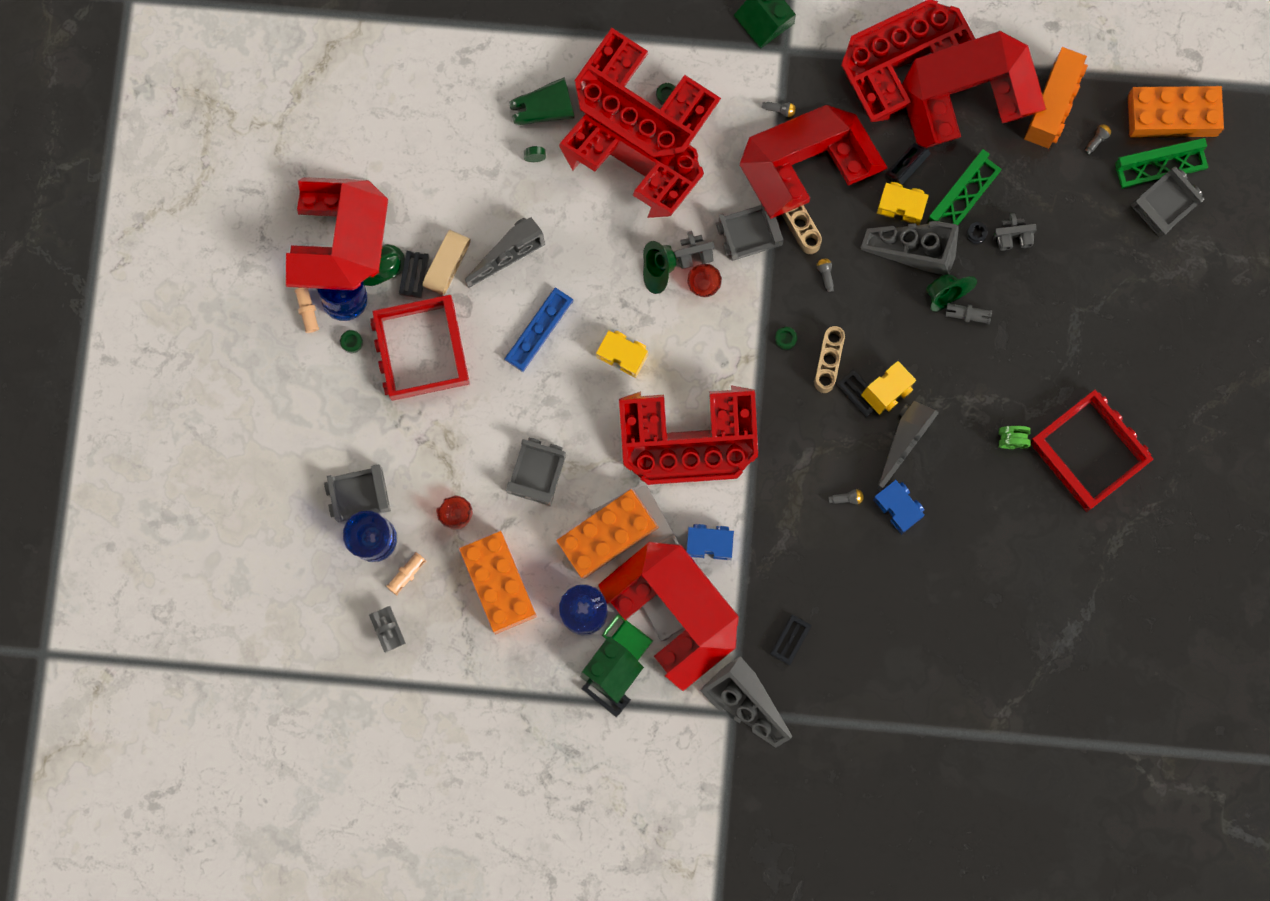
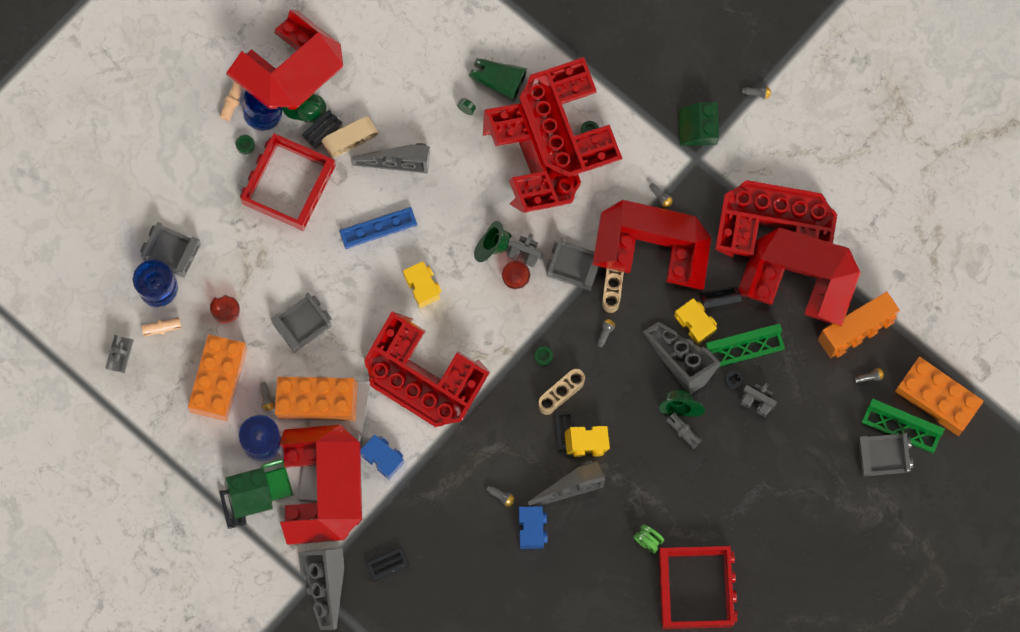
camera: 30 degrees right, 5 degrees down
(563, 572) = (267, 402): none -> dark grey piece

